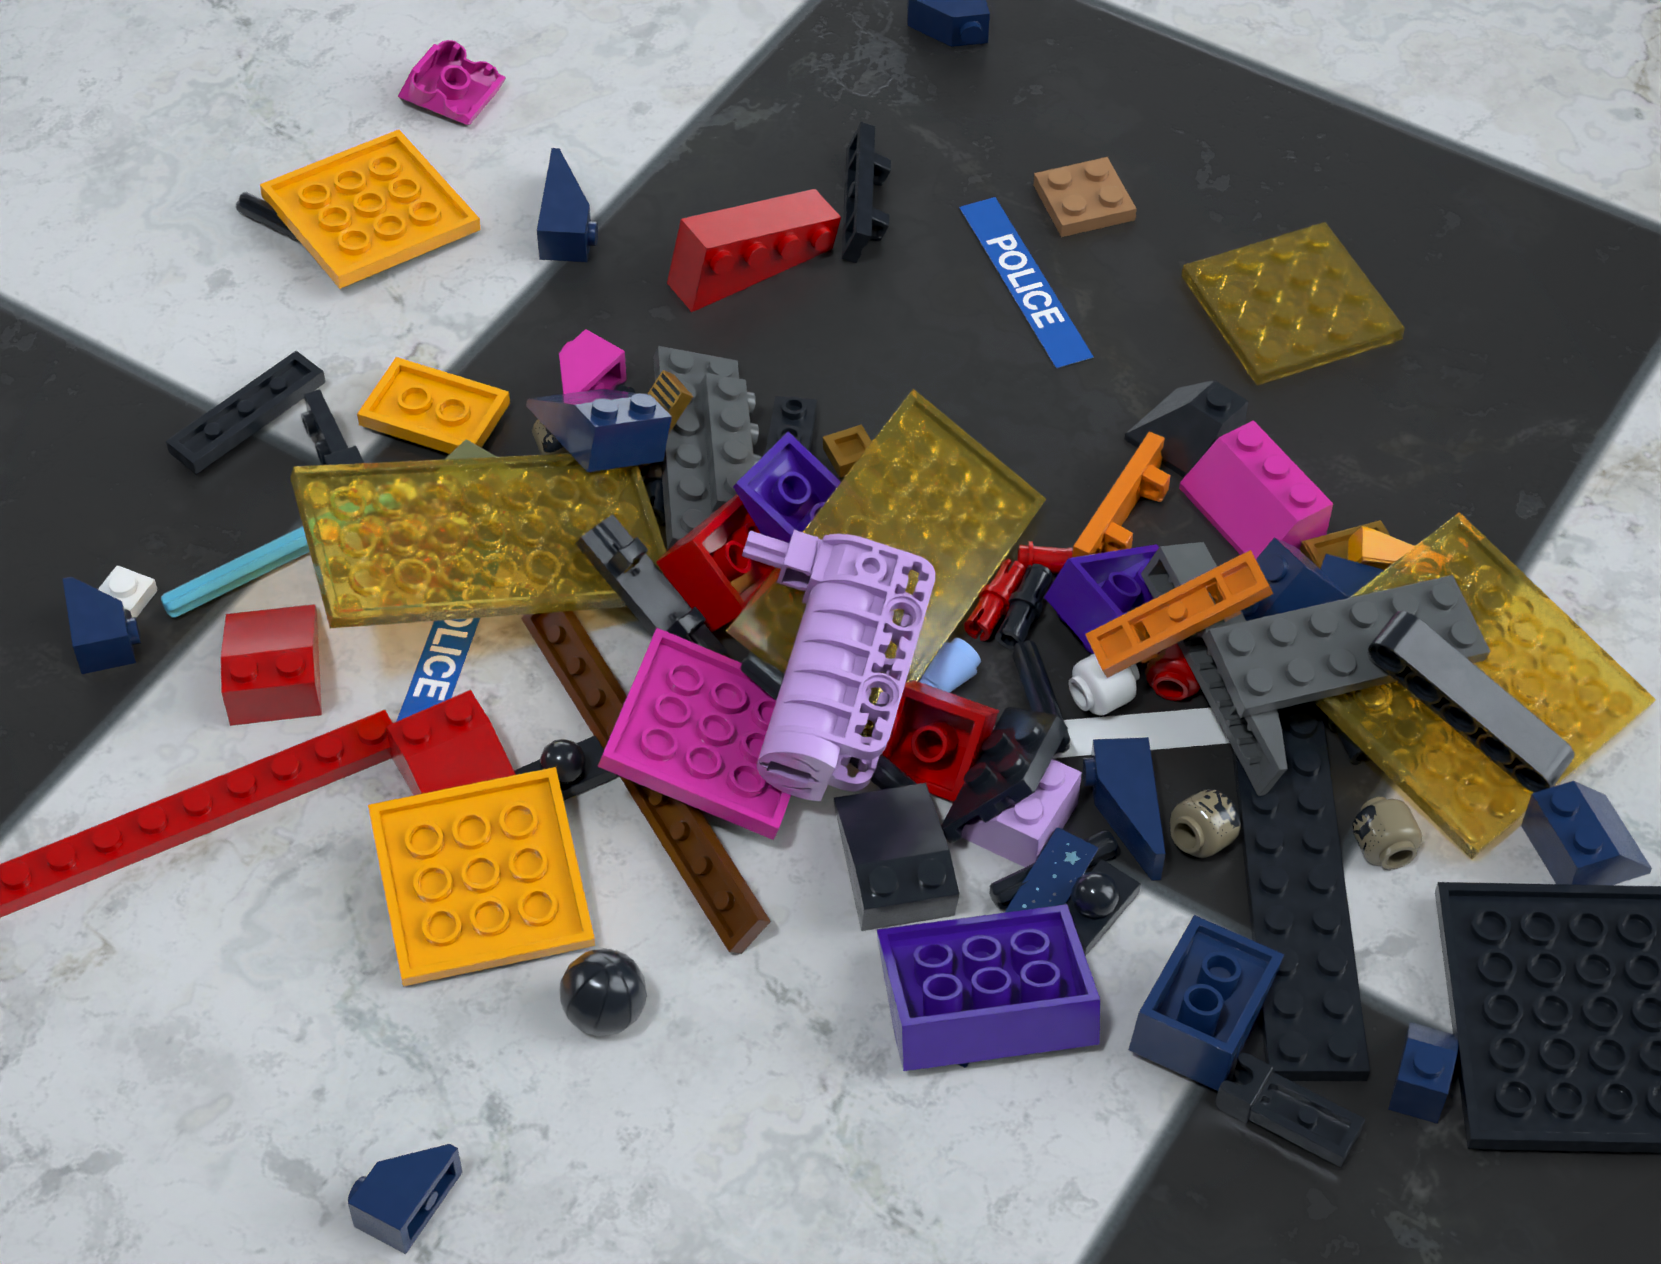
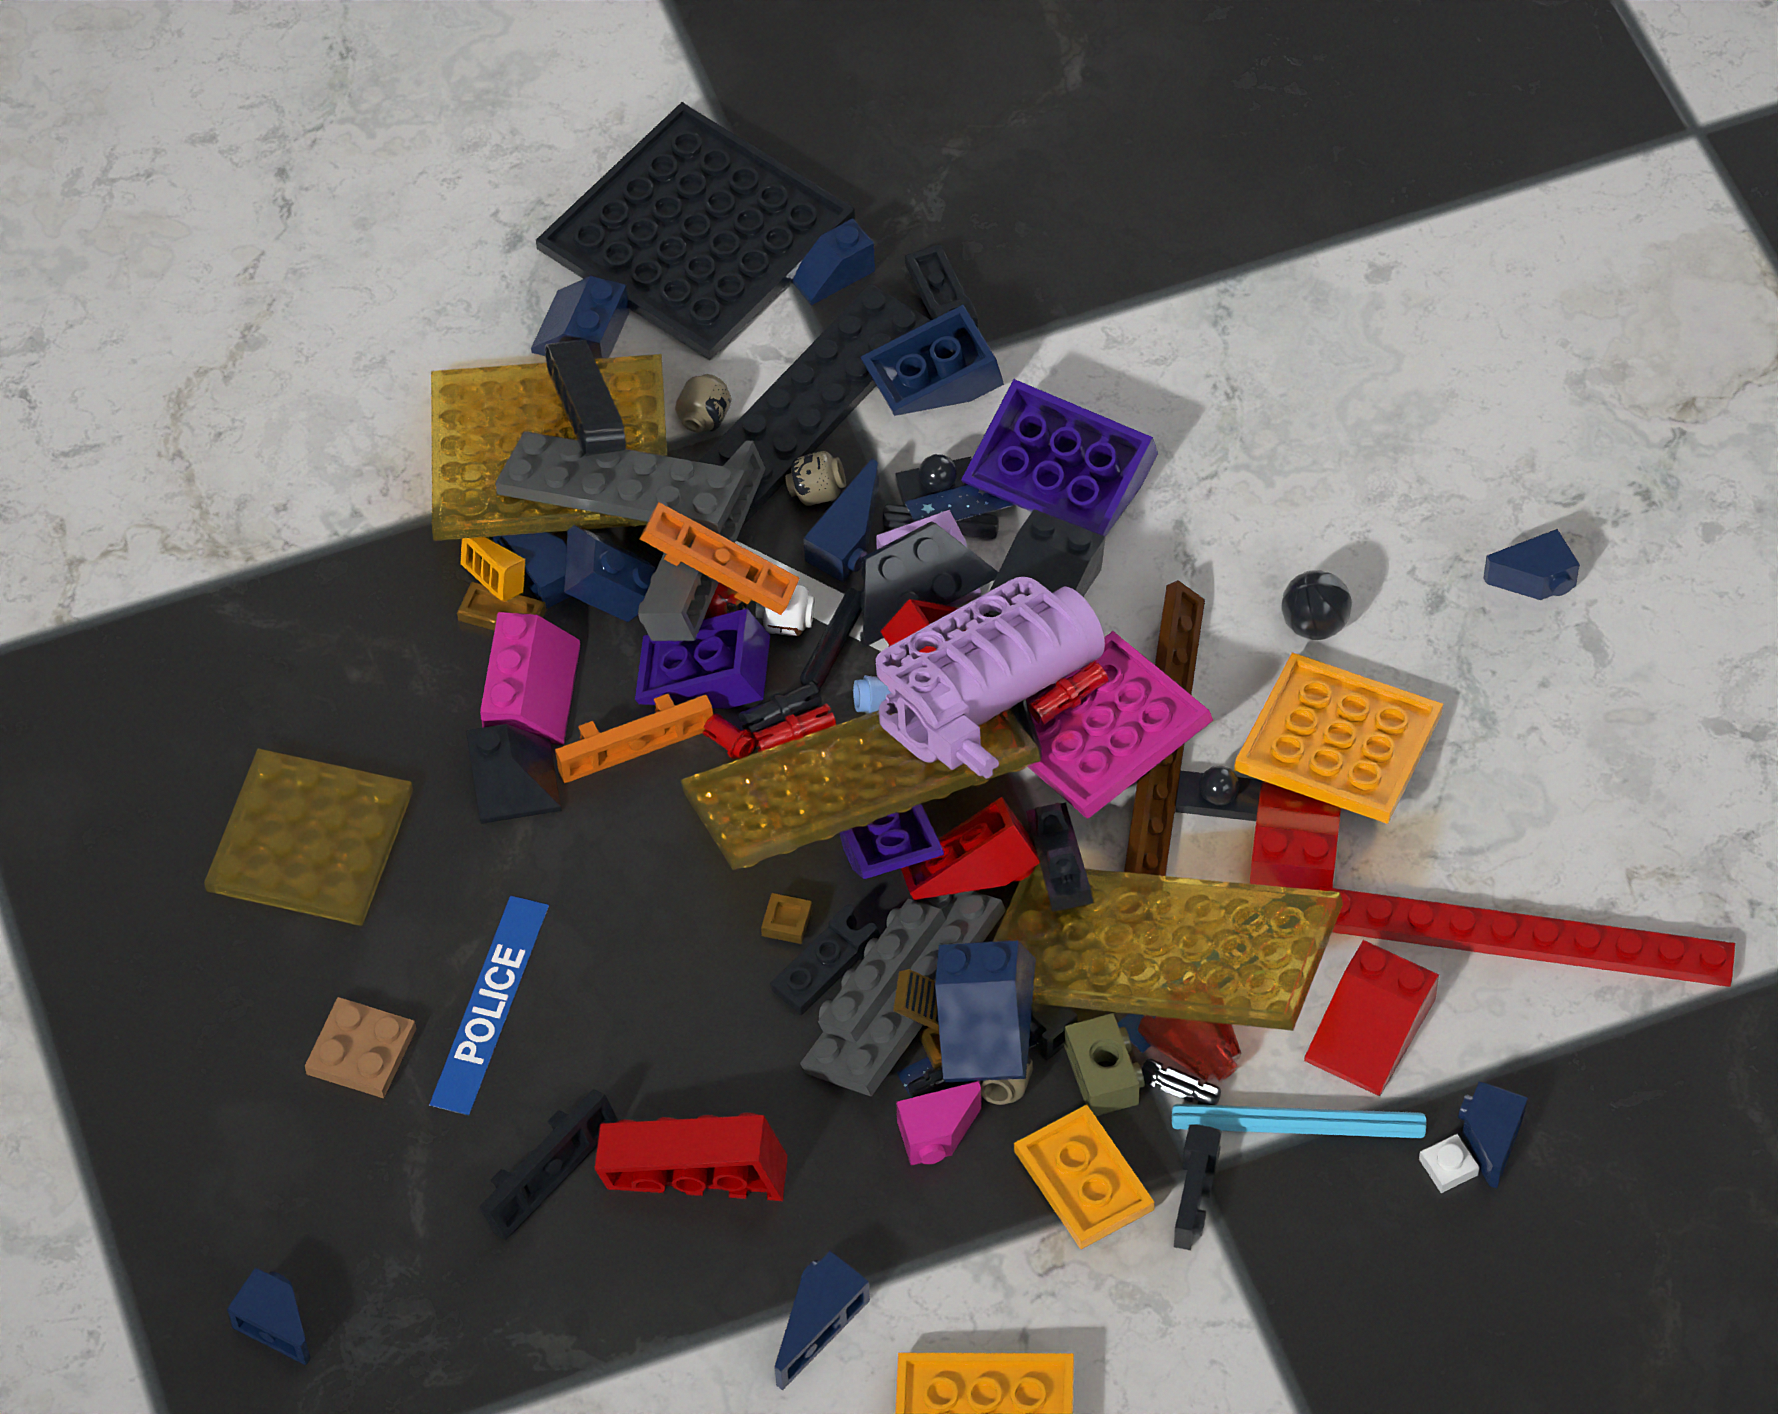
camera: 140 degrees left, 5 degrees up
(245, 412) = (1241, 1276): black plate -> none
(756, 728) = (1068, 693): none -> red pin

